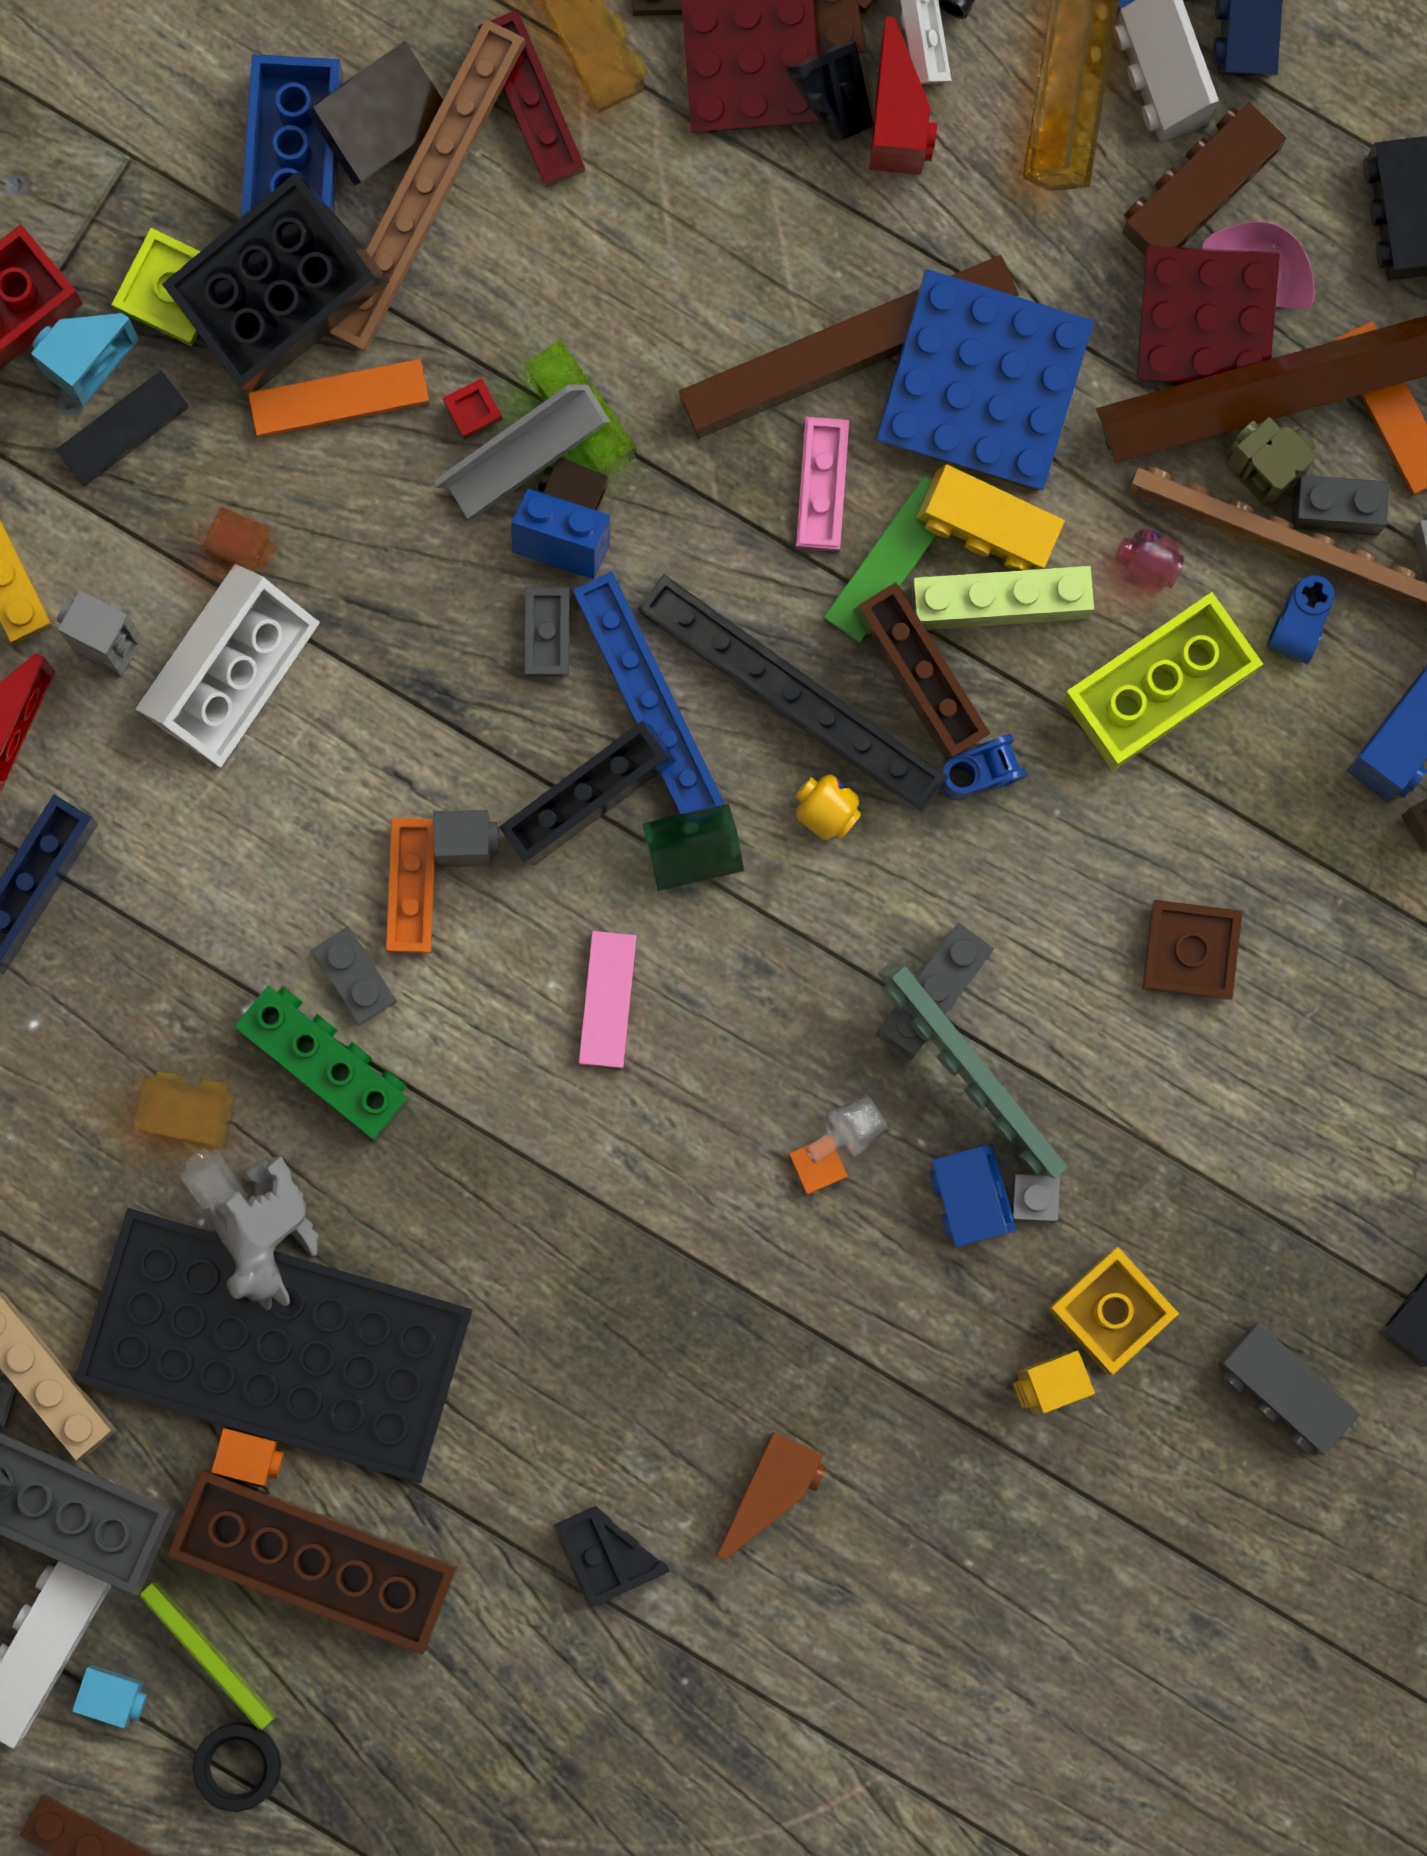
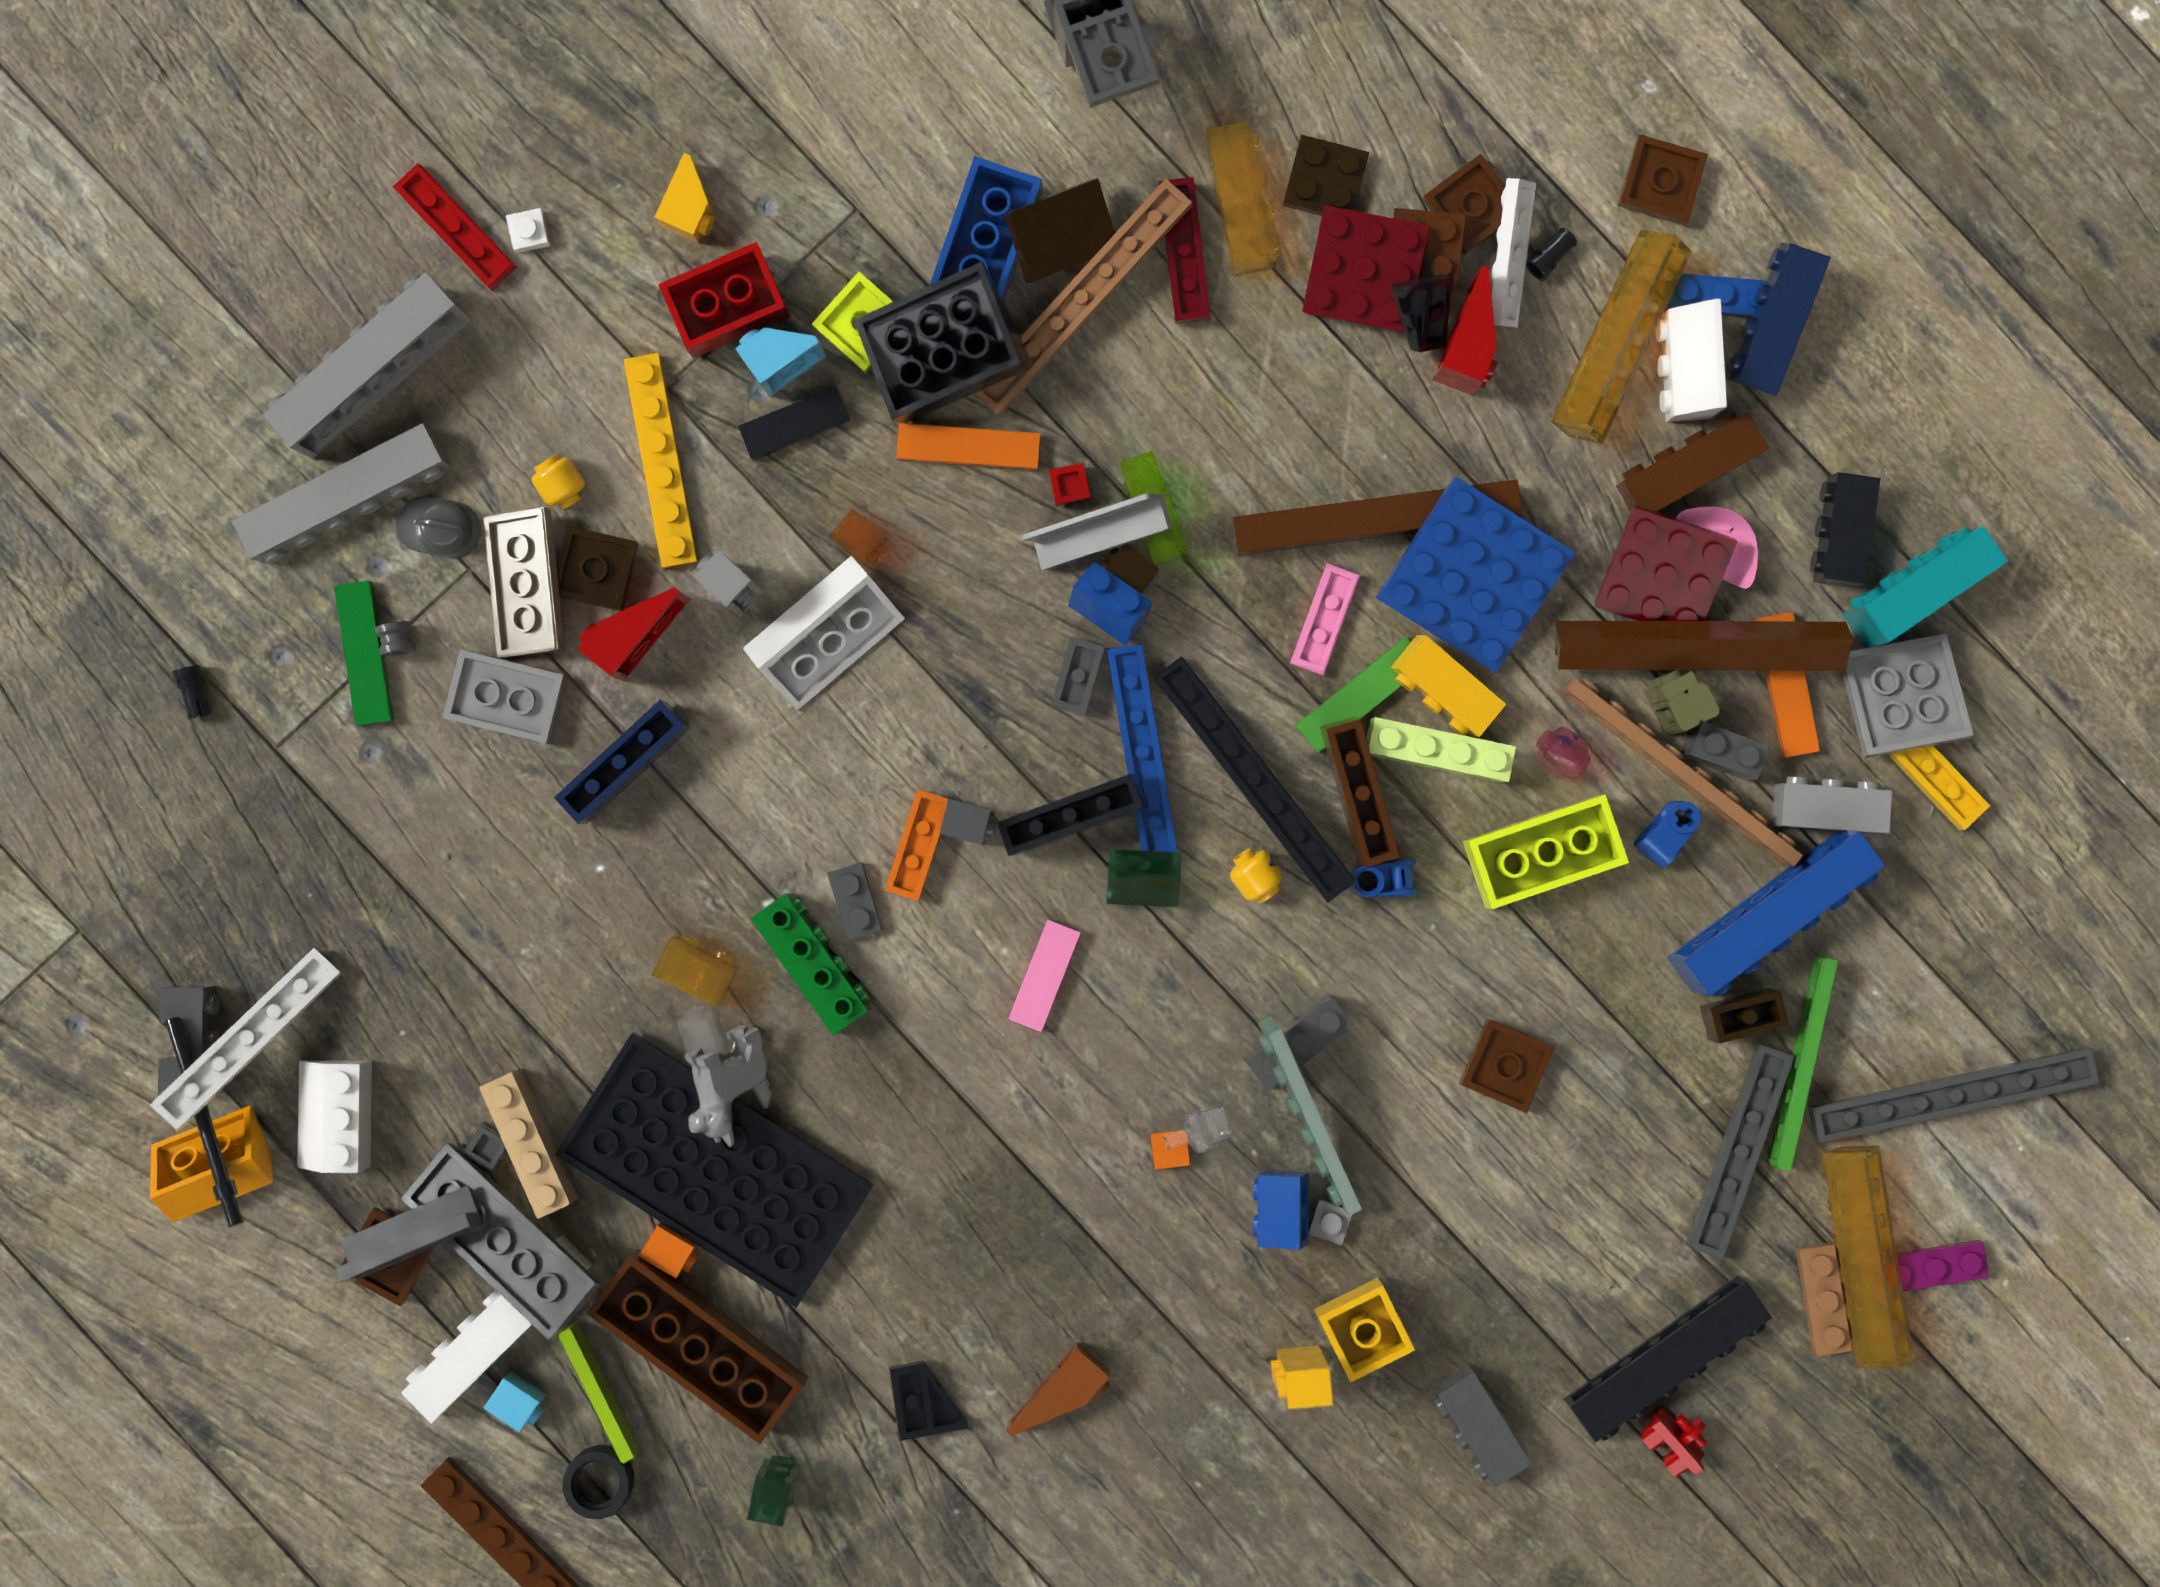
camera: 25 degrees right, 5 degrees up
(455, 1709) = (773, 1491): none -> clear green brick

